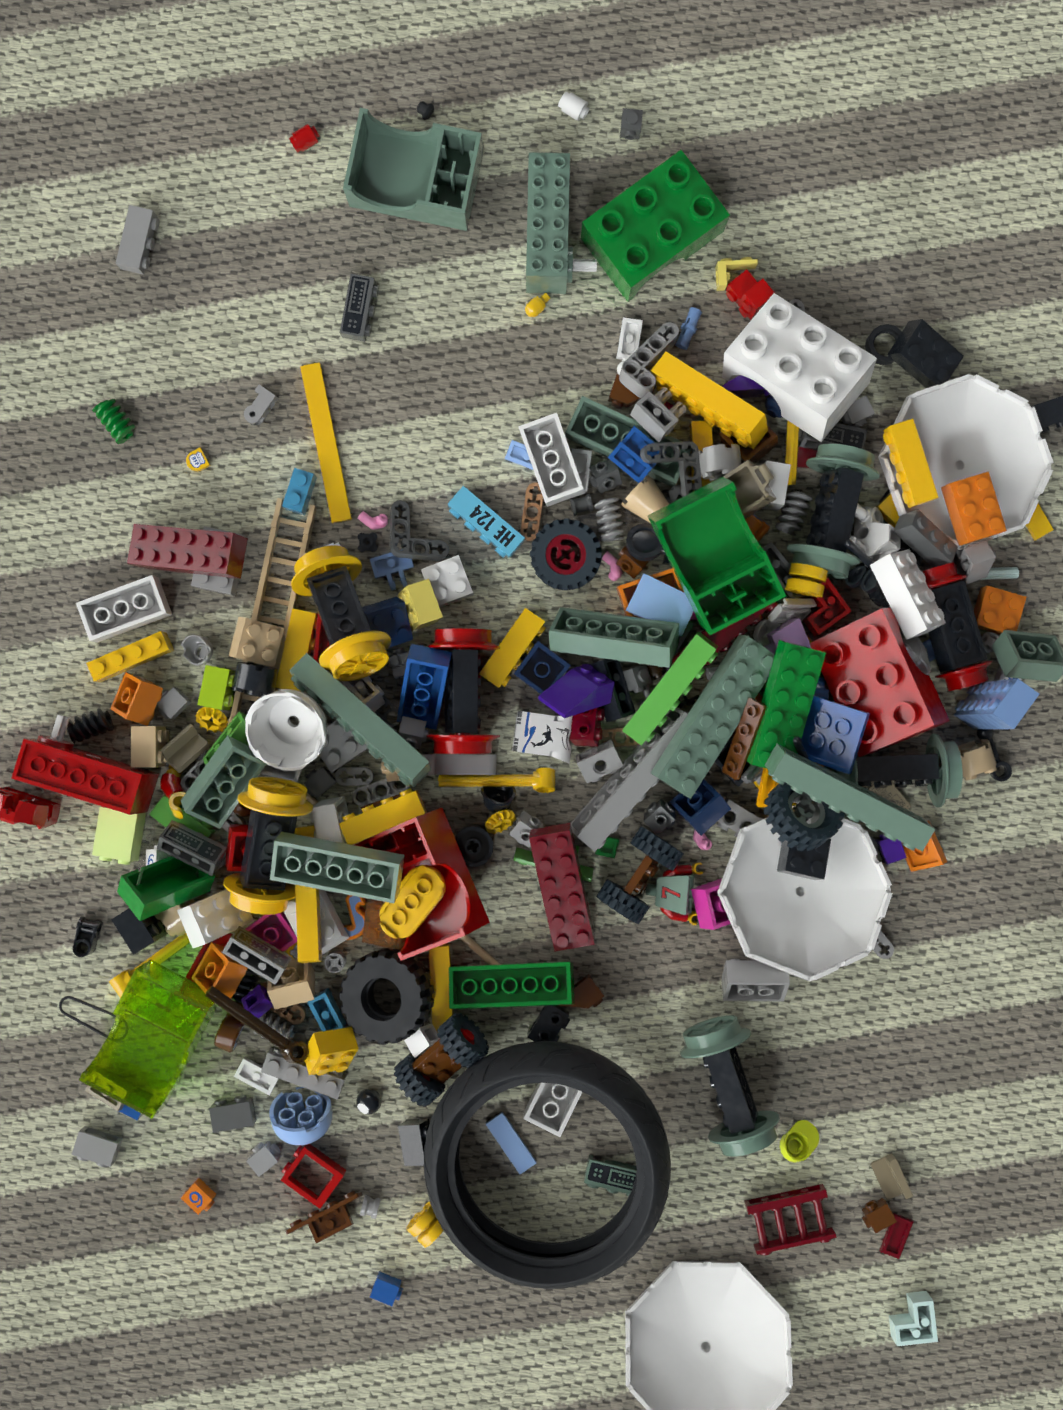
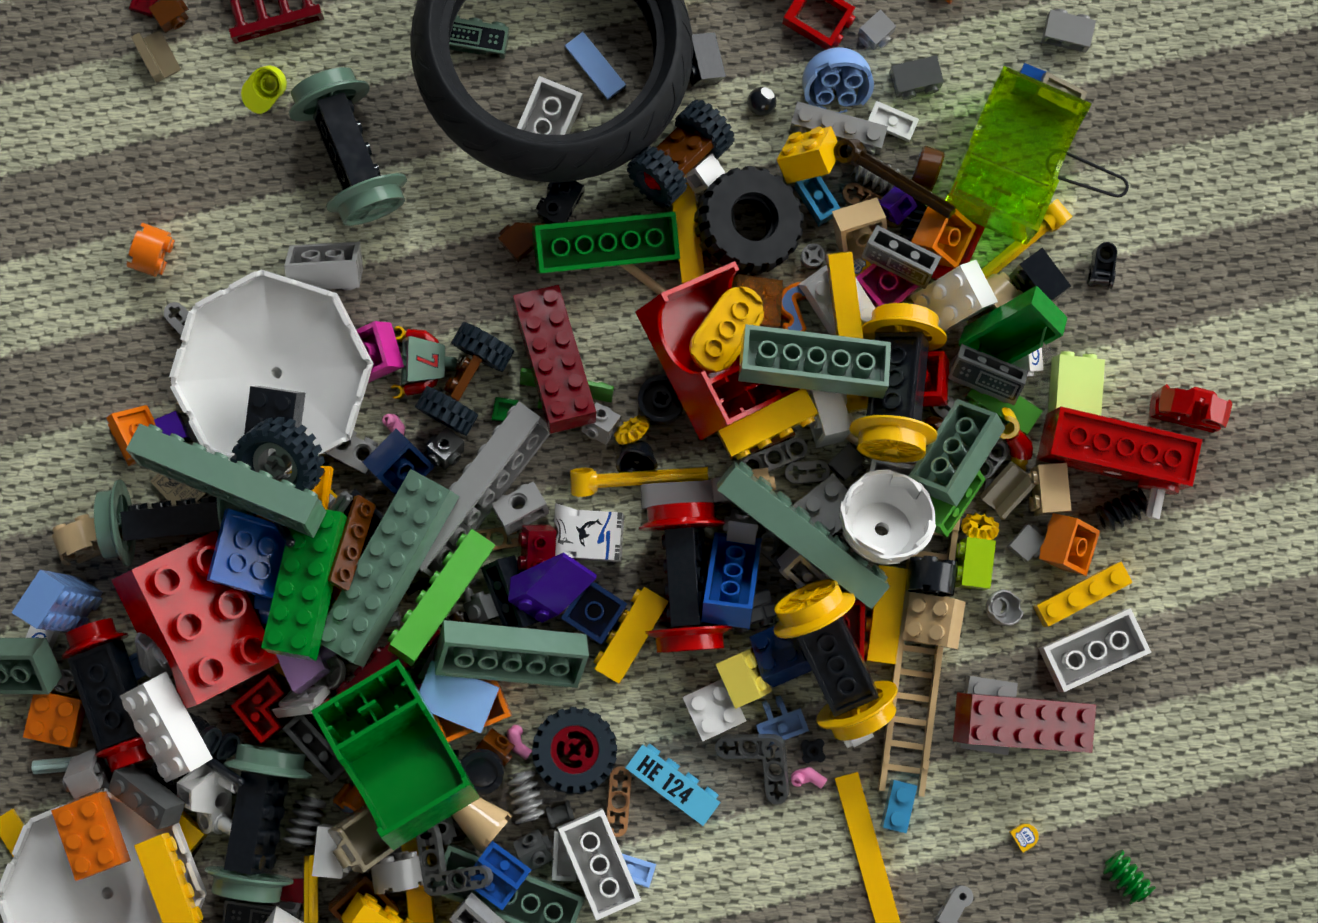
camera: 170 degrees right, 5 degrees down
(806, 580) = (286, 736): yellow wheel -> none
(904, 1005) = (150, 249): none -> orange brick
(988, 734) = (62, 569): black piece -> none

